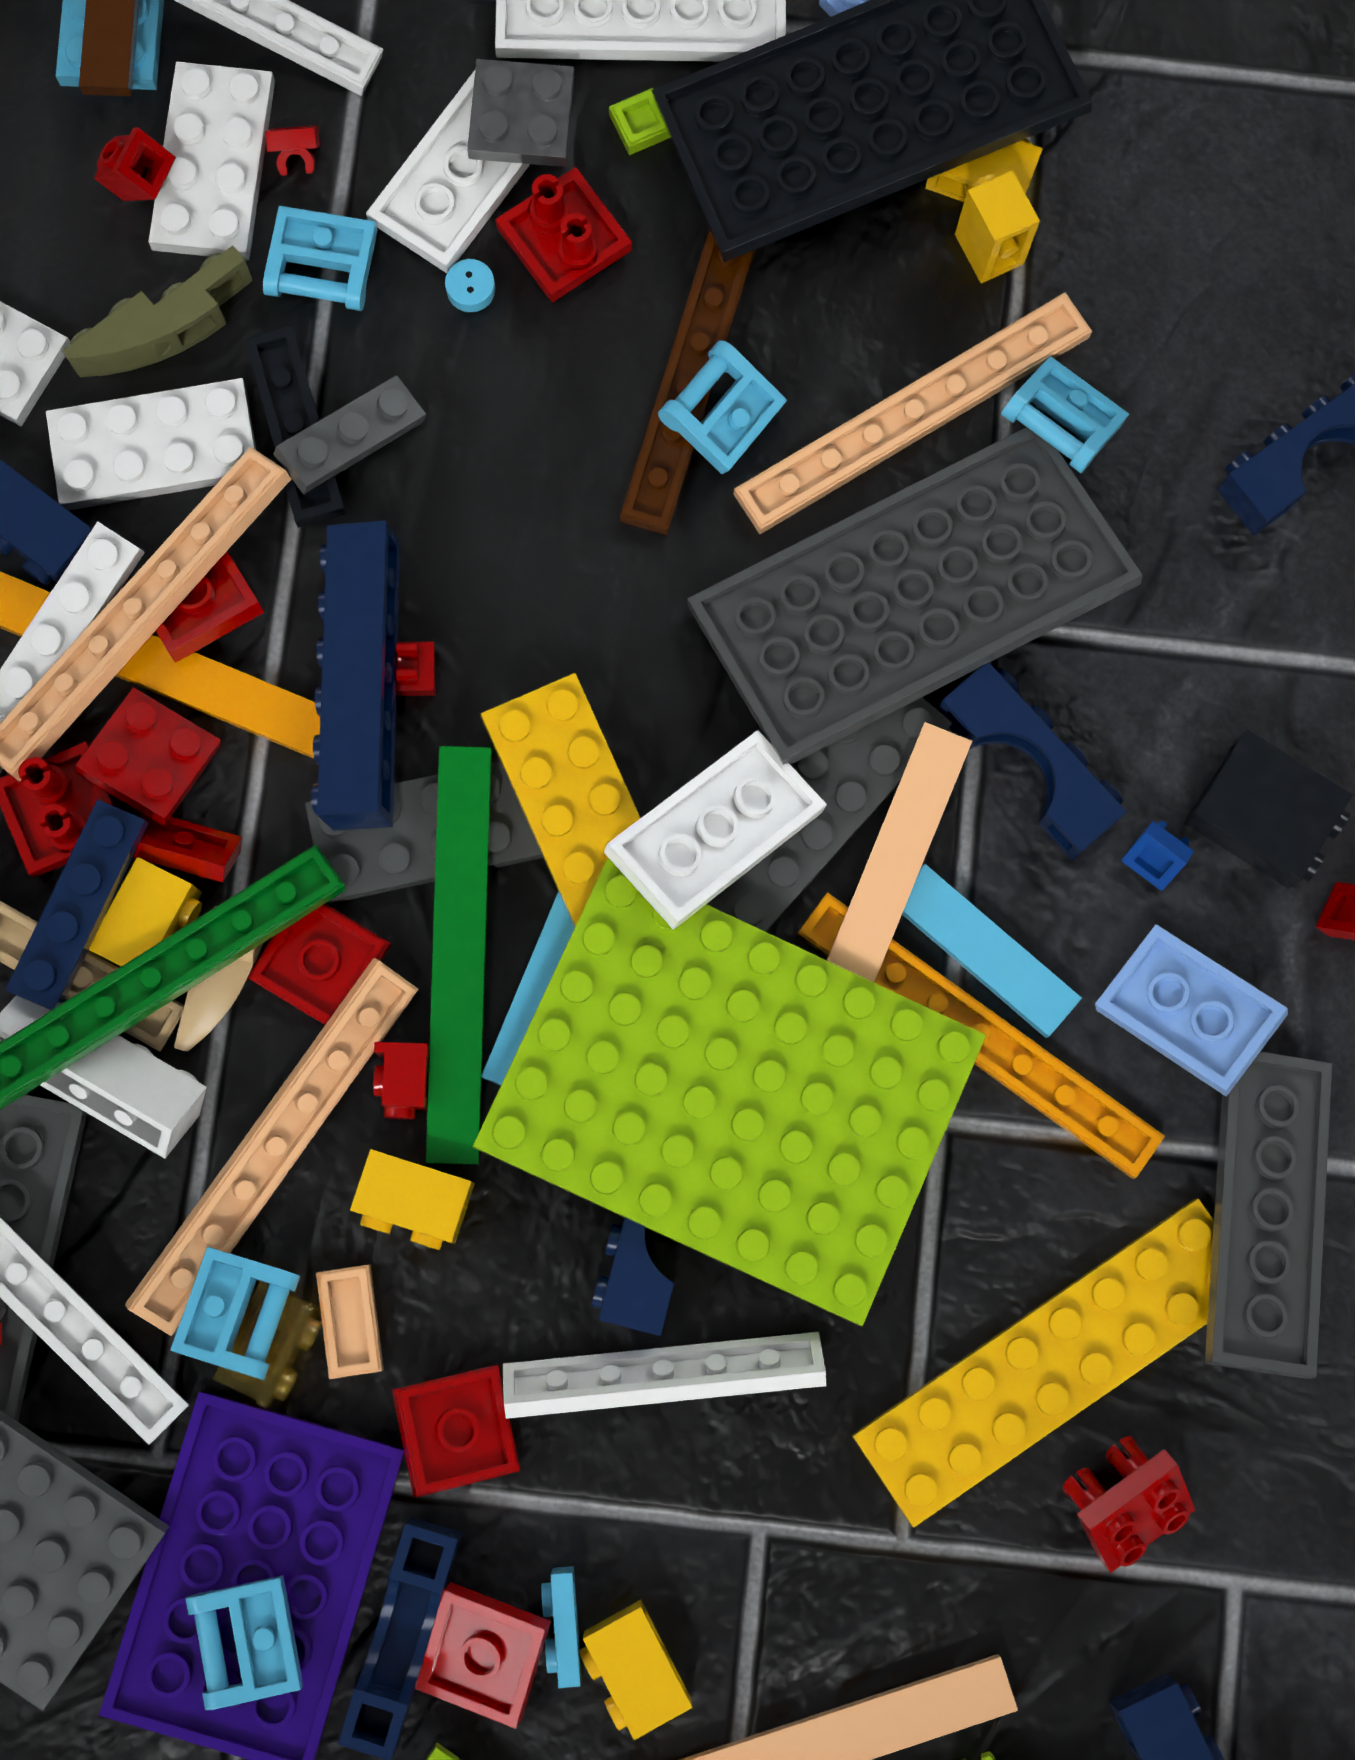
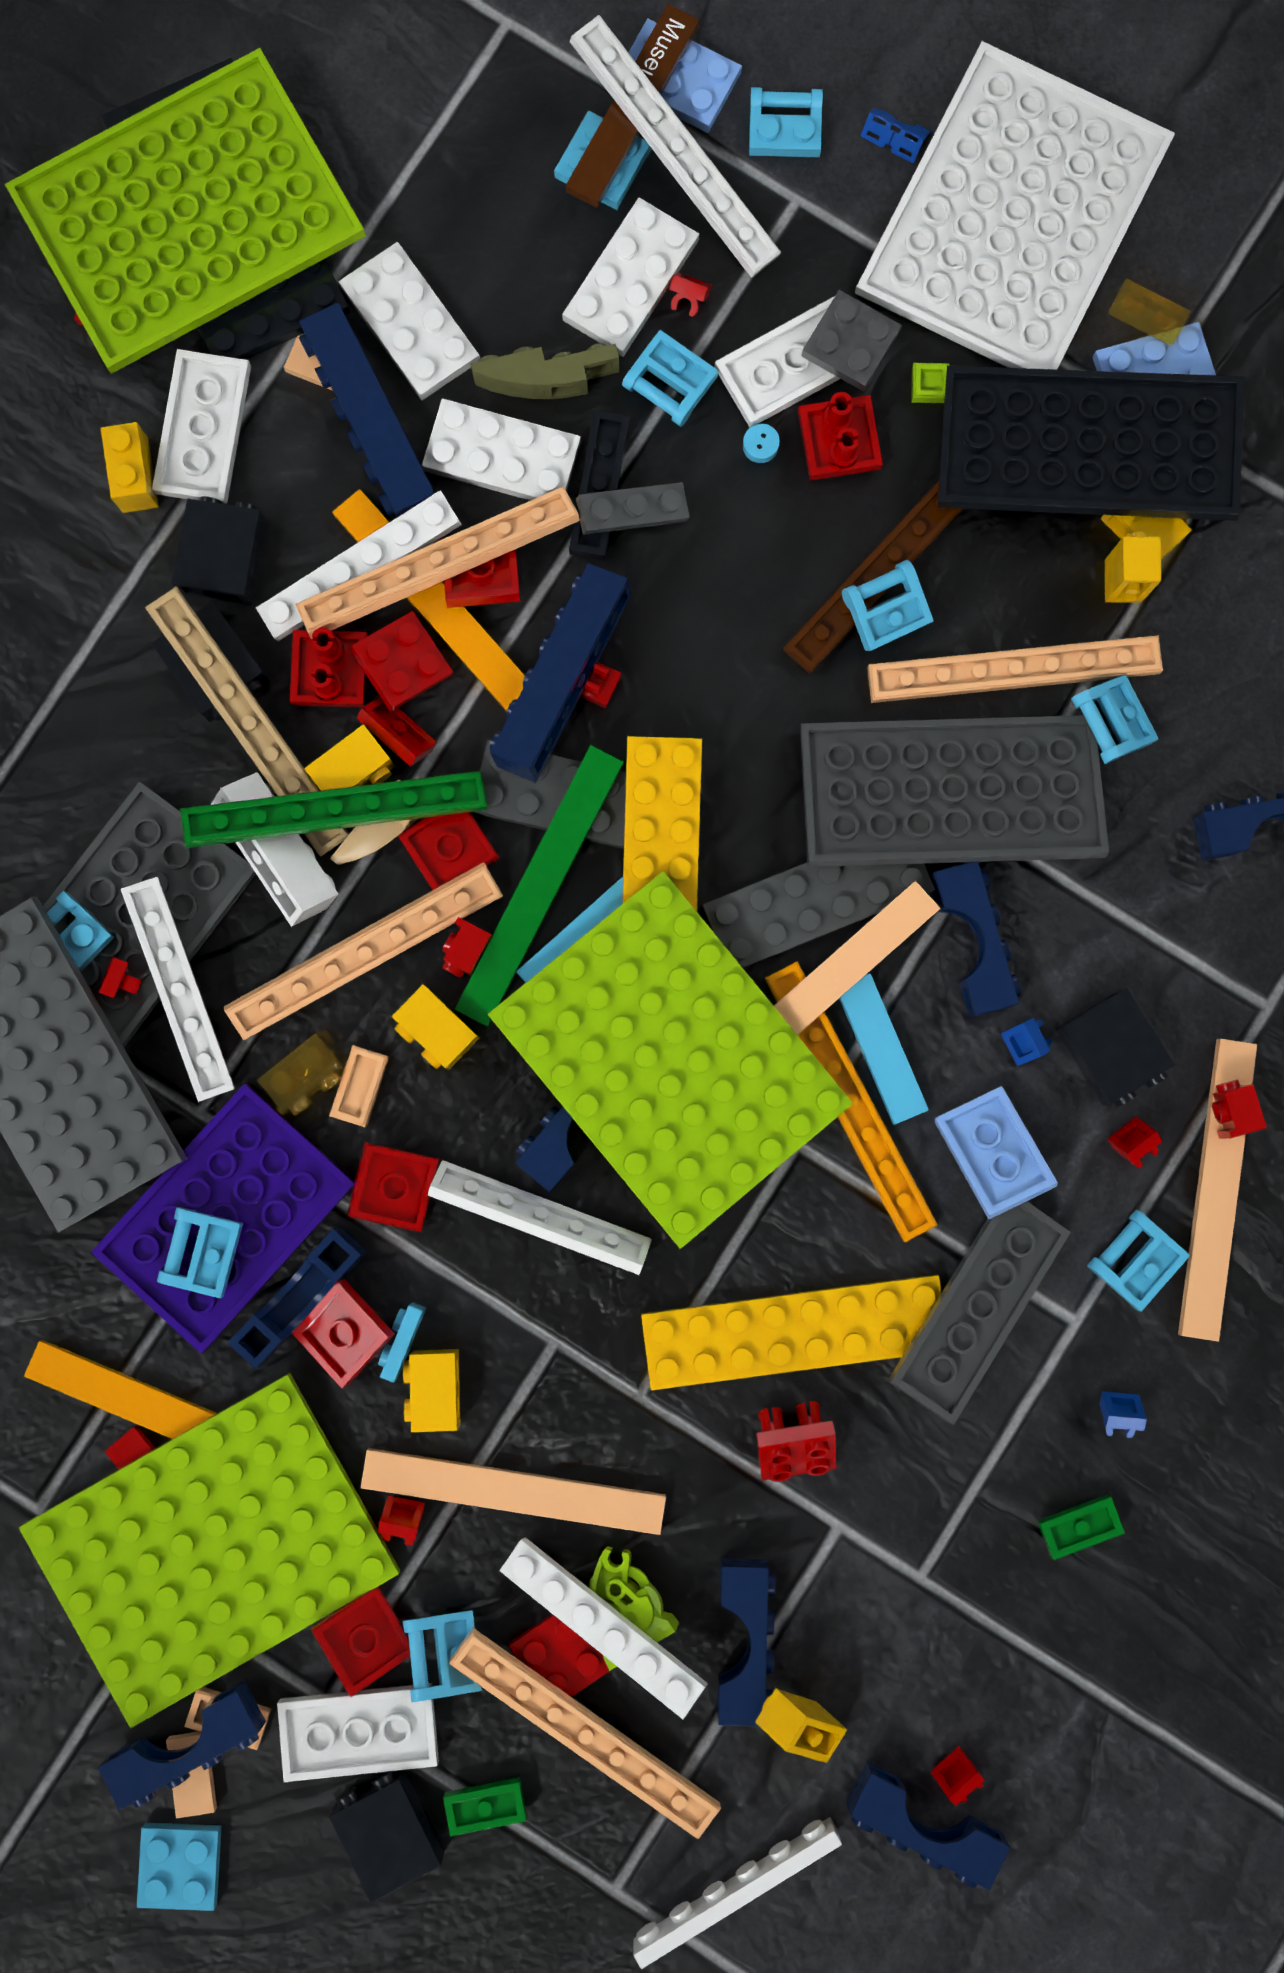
camera: 30 degrees right, 5 degrees up
(77, 906) = (310, 738): dark blue plate -> none
(124, 162) = (572, 251): red brick -> none
(219, 1306) = (280, 1037): medium azure plate -> none
(714, 829) = (742, 885): white plate -> none

